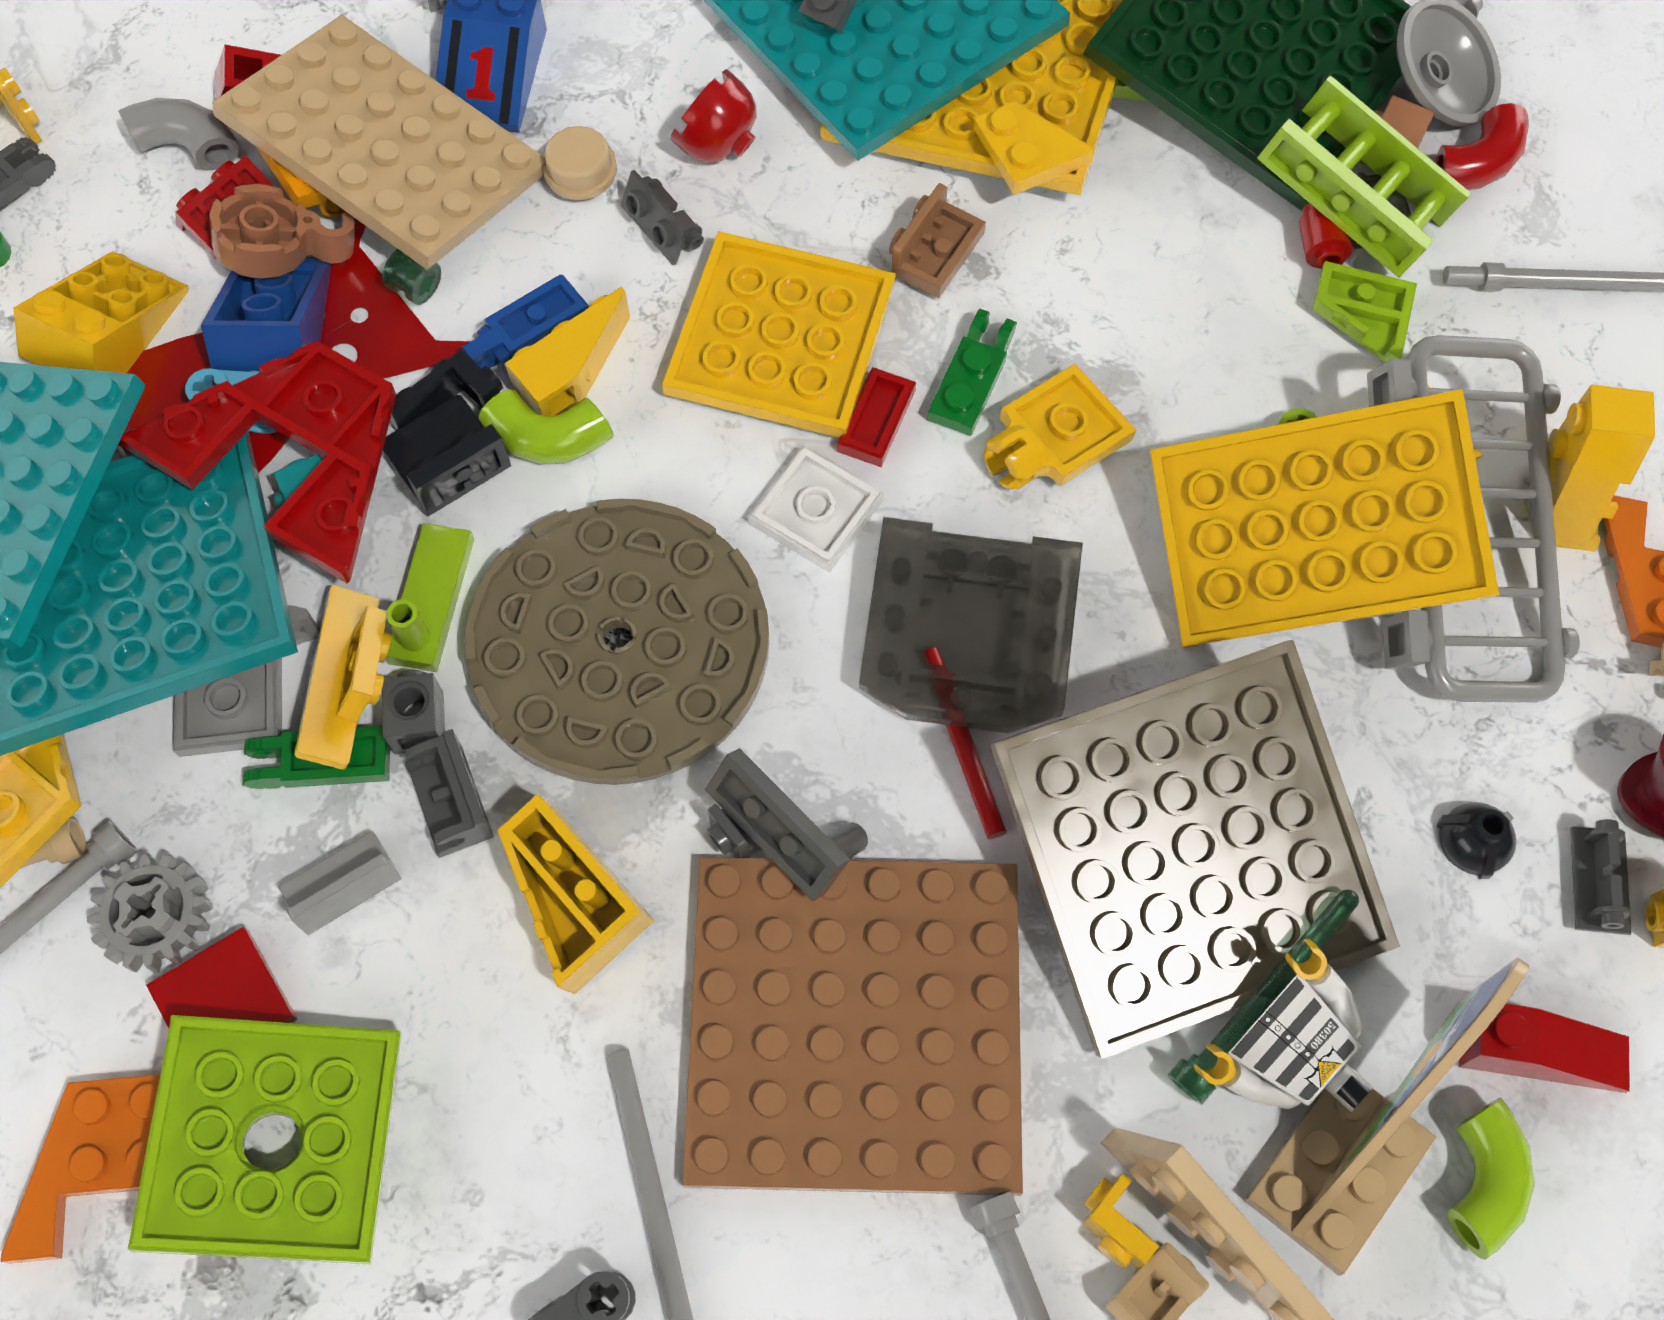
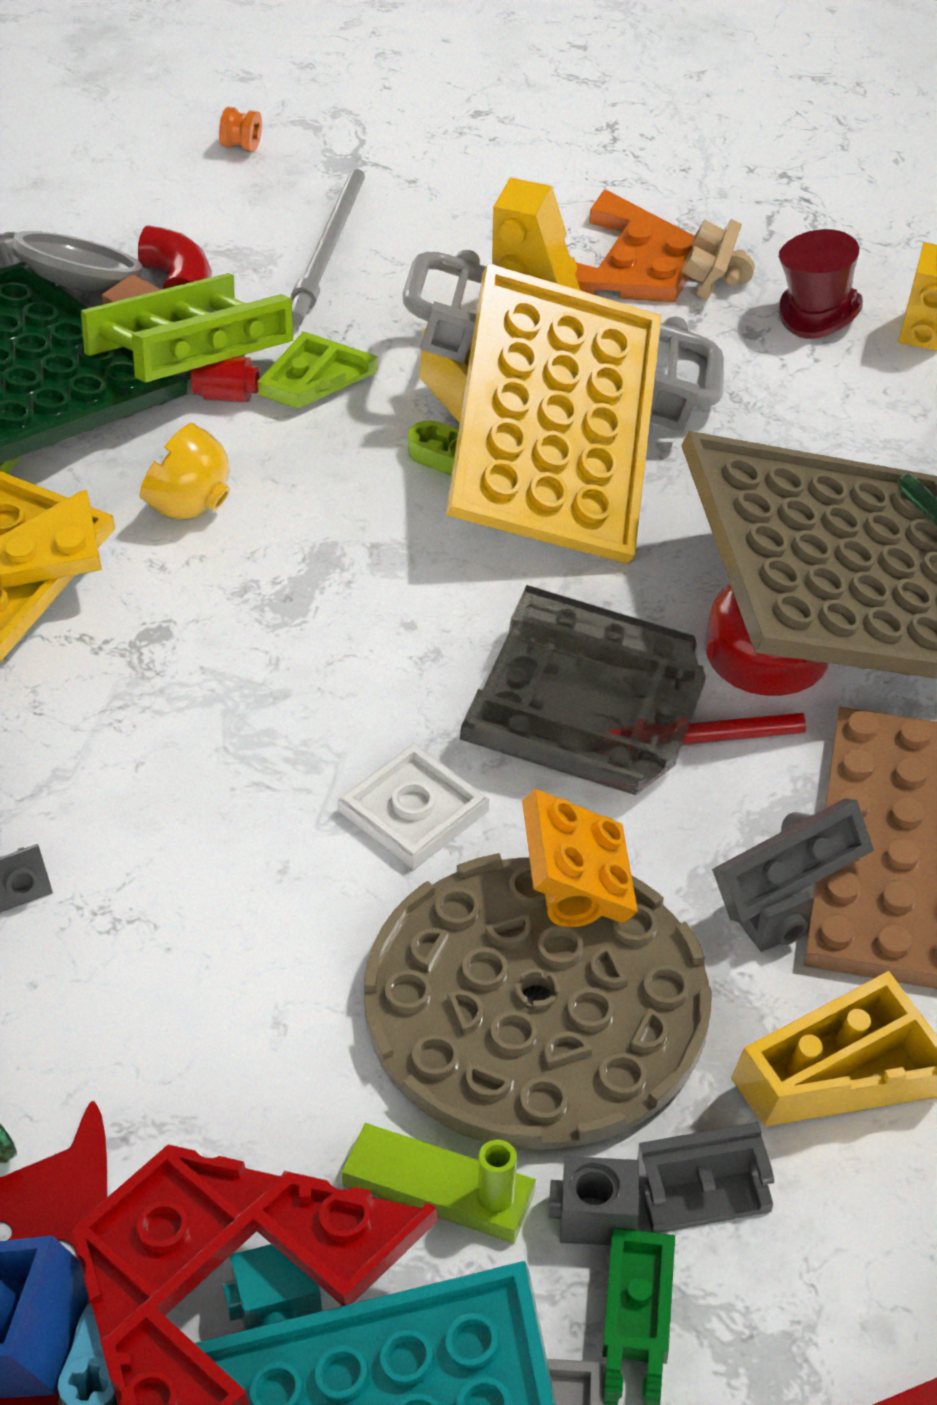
camera: 80 degrees left, 20 degrees down
(339, 883) = (803, 1305): light grey panel -> none
(342, 676) = (558, 1237): yellow bracket -> none
(441, 384) = (162, 1095): black bracket -> none
(446, 454) = (260, 1123): black bracket -> none
(525, 322) = (94, 1034): blue hinge -> none
(544, 437) = (260, 1033): lime cylinder -> none
(568, 360) = (170, 995): yellow slope -> none
(734, 633) = (577, 861): none -> light orange plate
(780, 334) = (190, 799): yellow plate -> none
(877, 417) = (317, 739): red tile -> none
(934, 243) = (128, 649): medium nougat bracket -> none
(971, 376) = (289, 654): green hinge -> none
(1056, 431) = (384, 597): yellow plate -> none
(1162, 231) = (189, 476): none -> yellow cylinder
(1470, 845) = (842, 416): black piece -> none
(1600, 878) = (868, 353): dark grey hinge -> none

